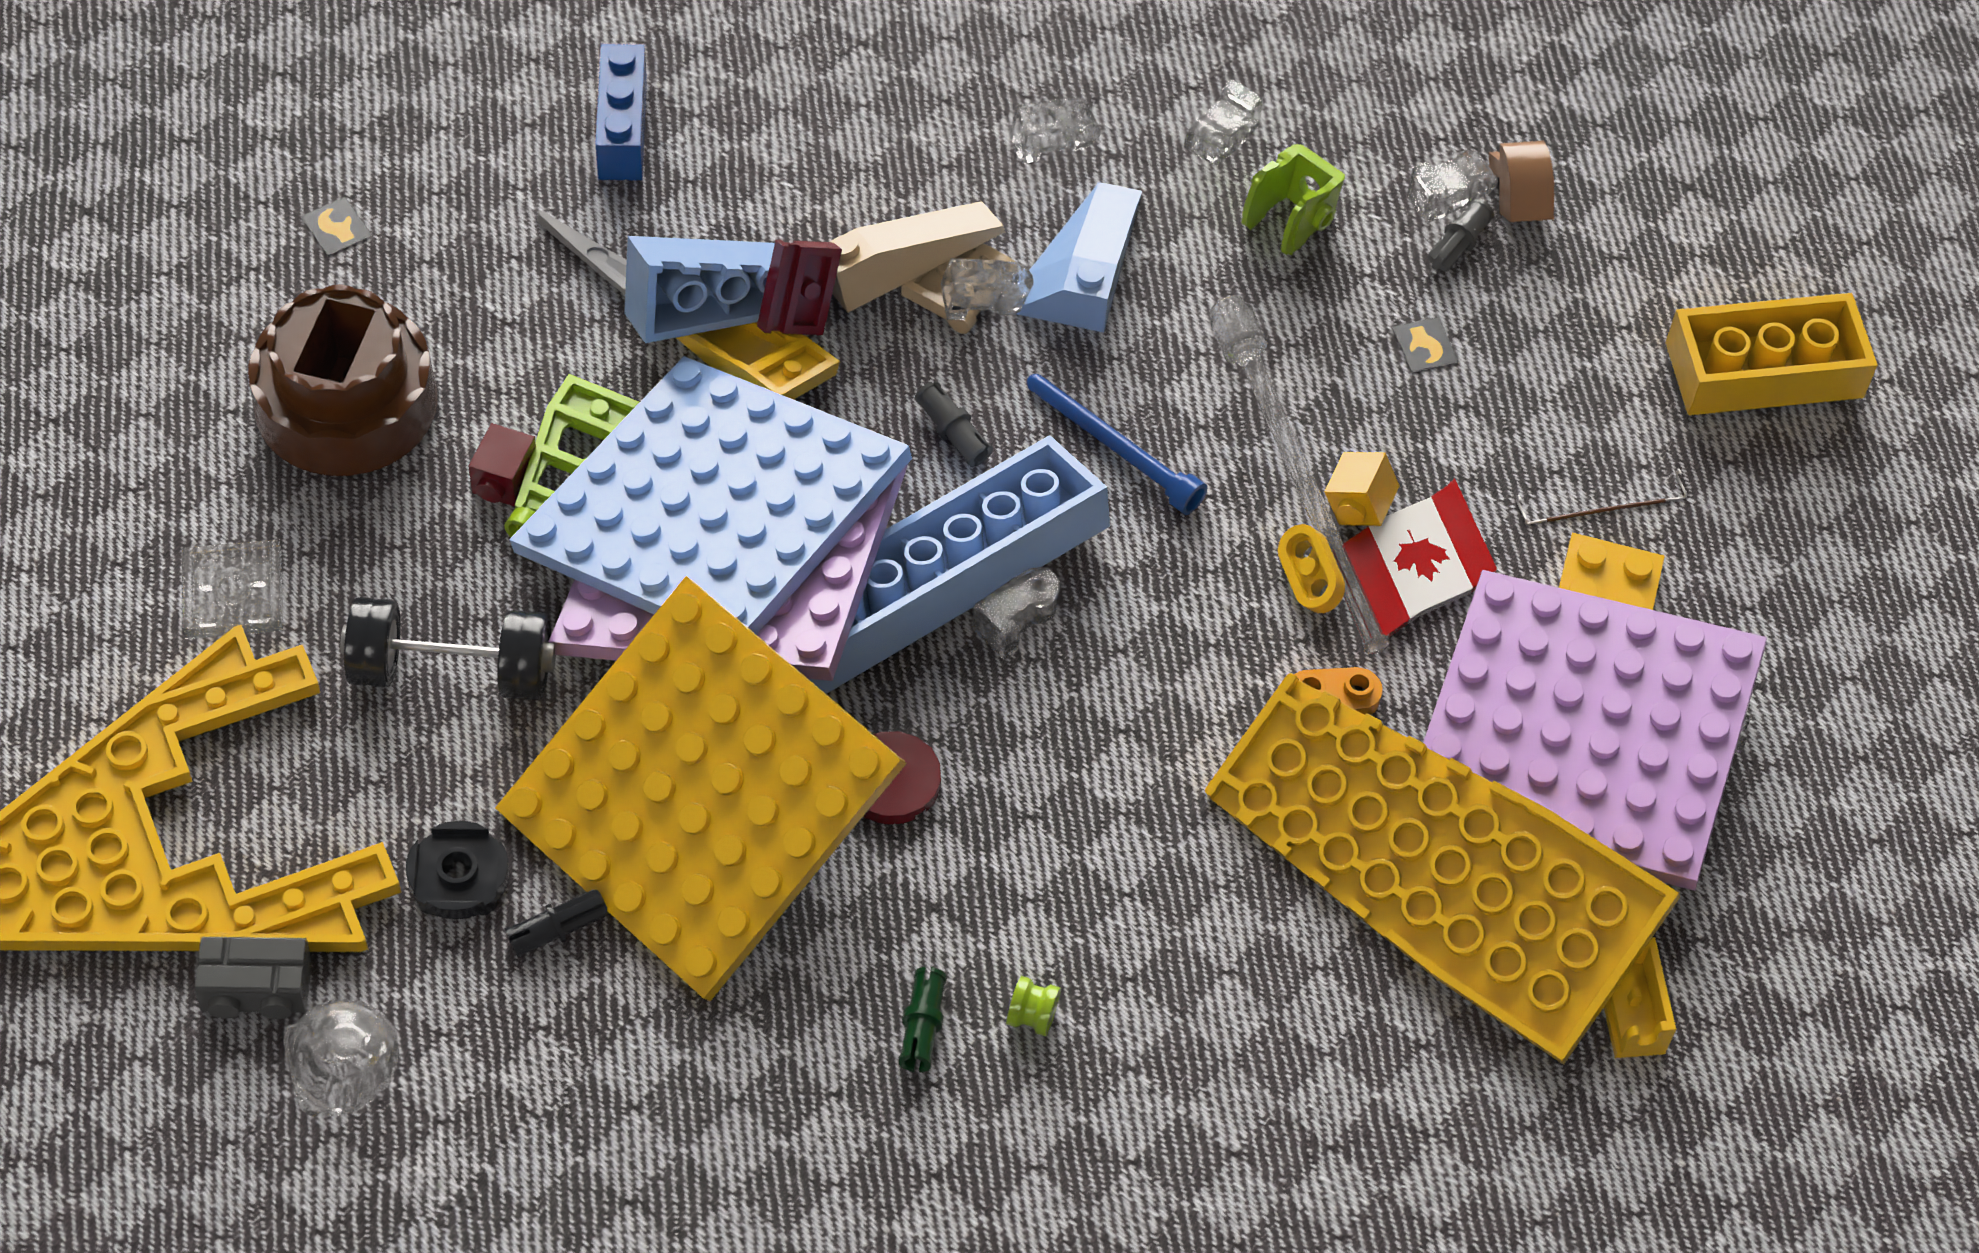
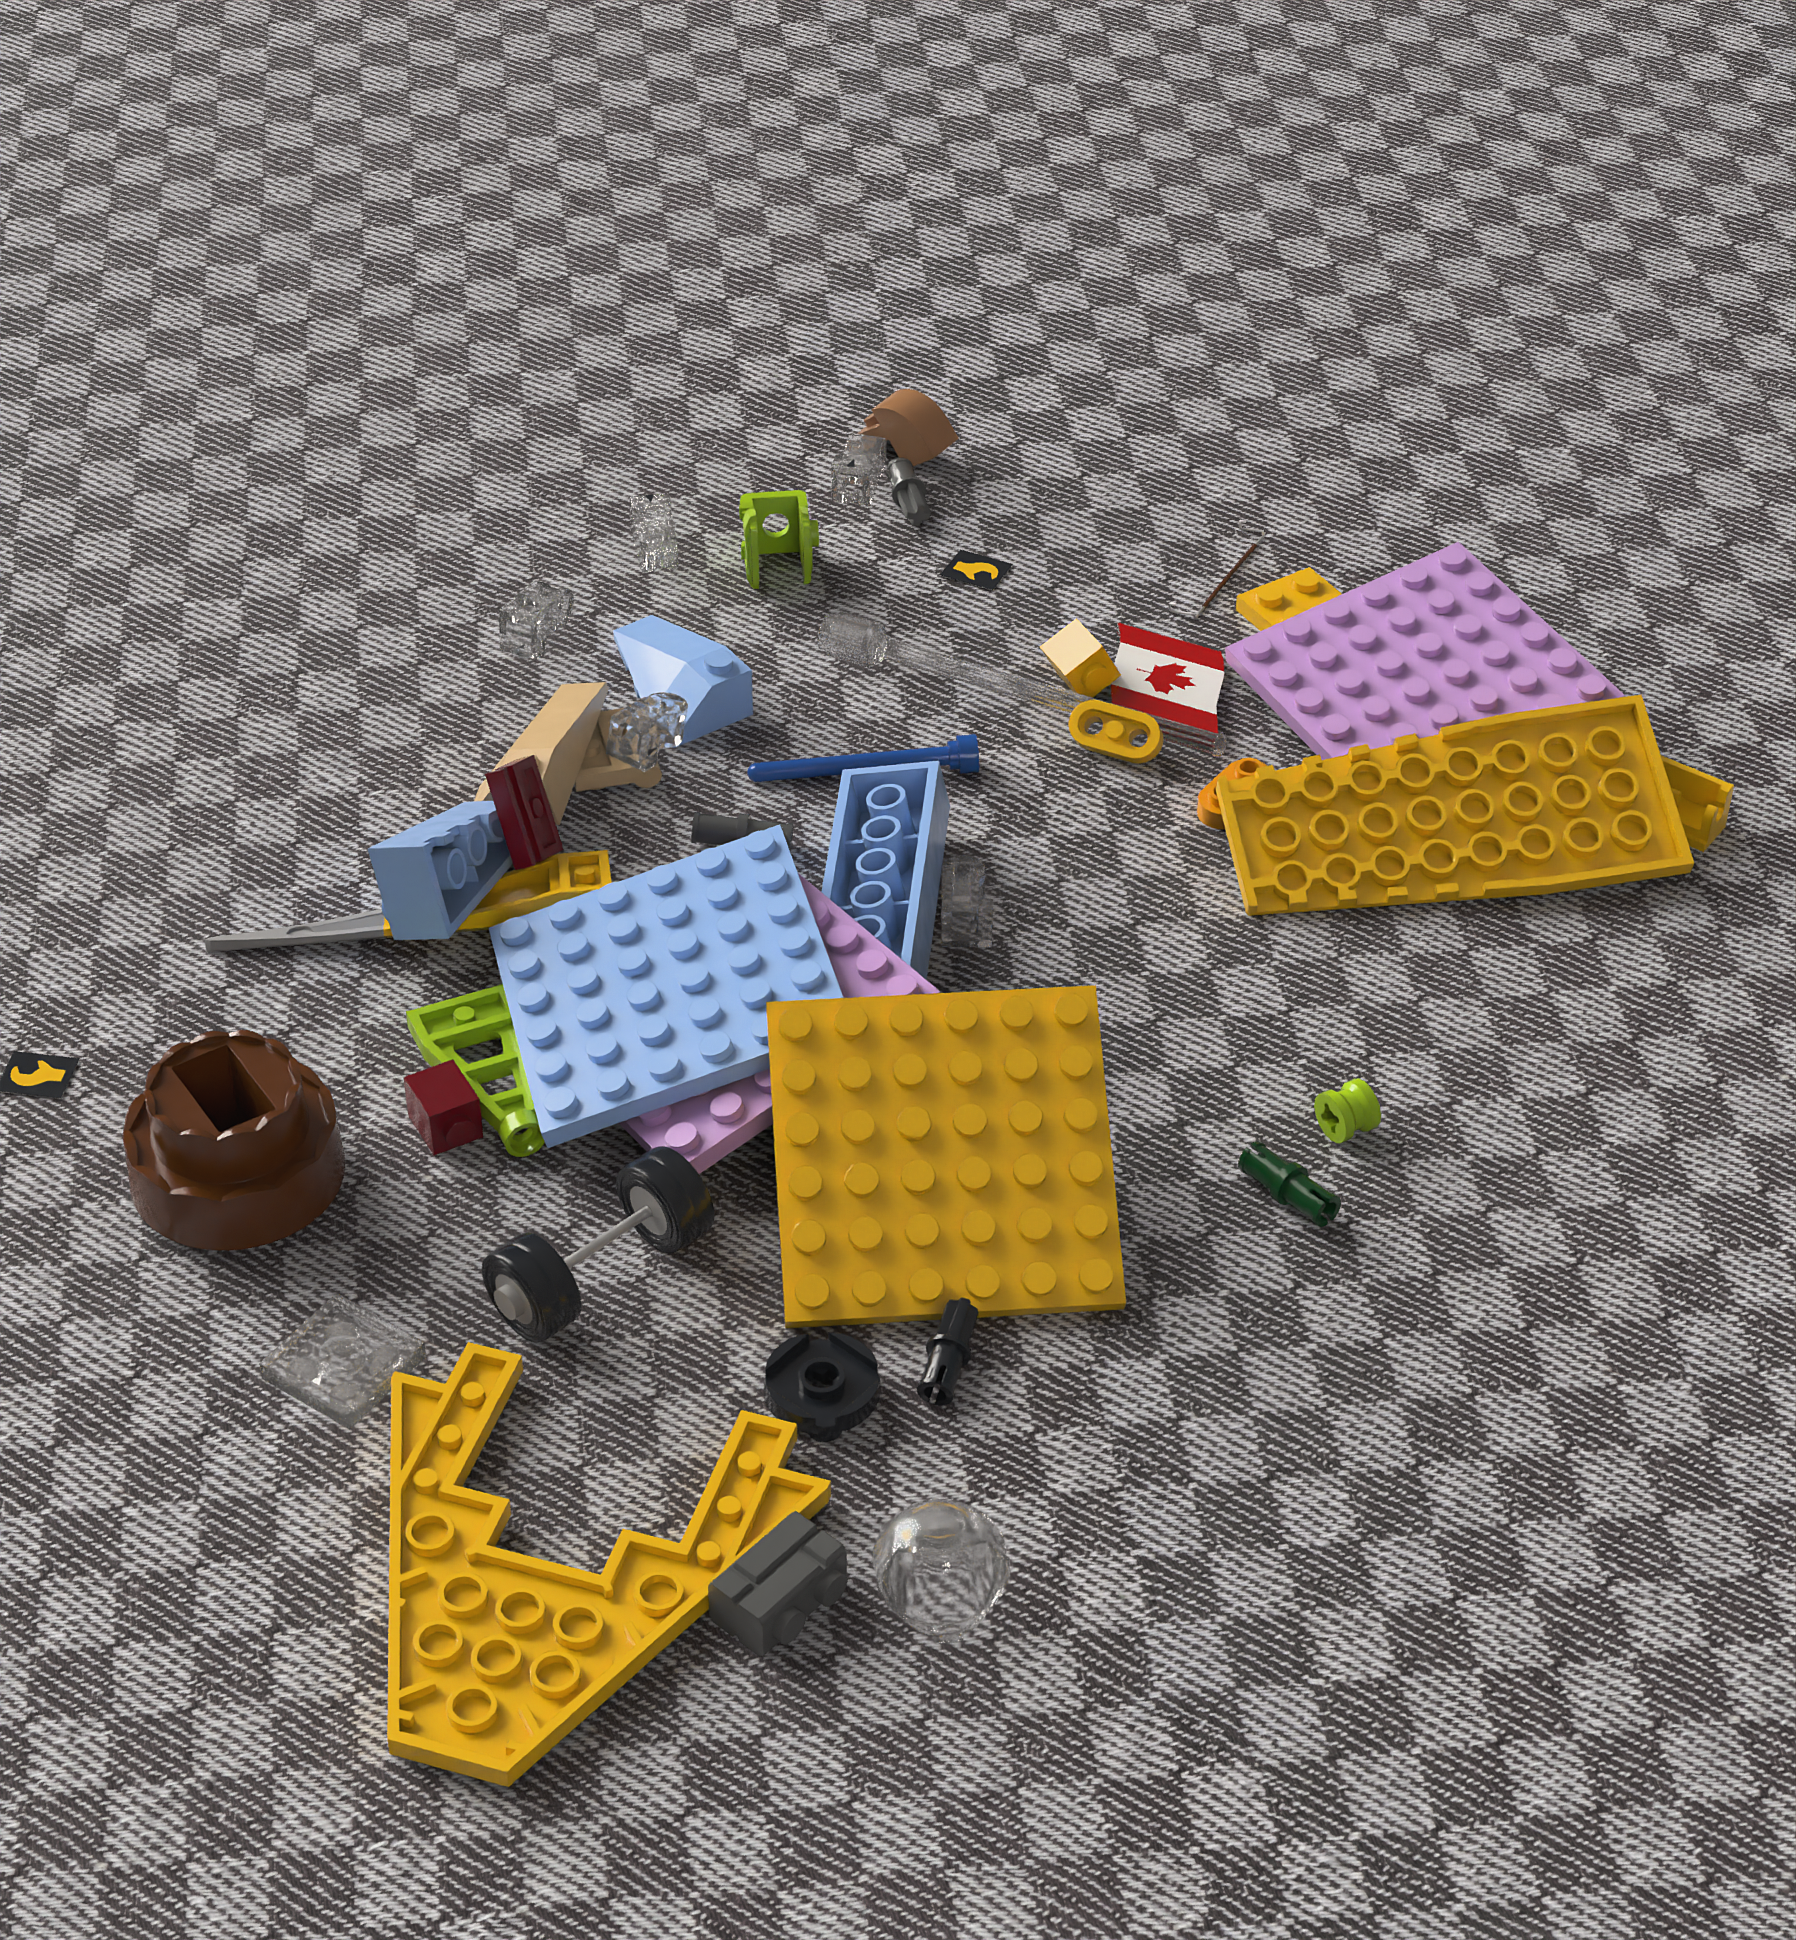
camera: 45 degrees left, 15 degrees down
(621, 112) = (184, 826): brick -> none
(1770, 353) = (1204, 415): yellow brick -> none

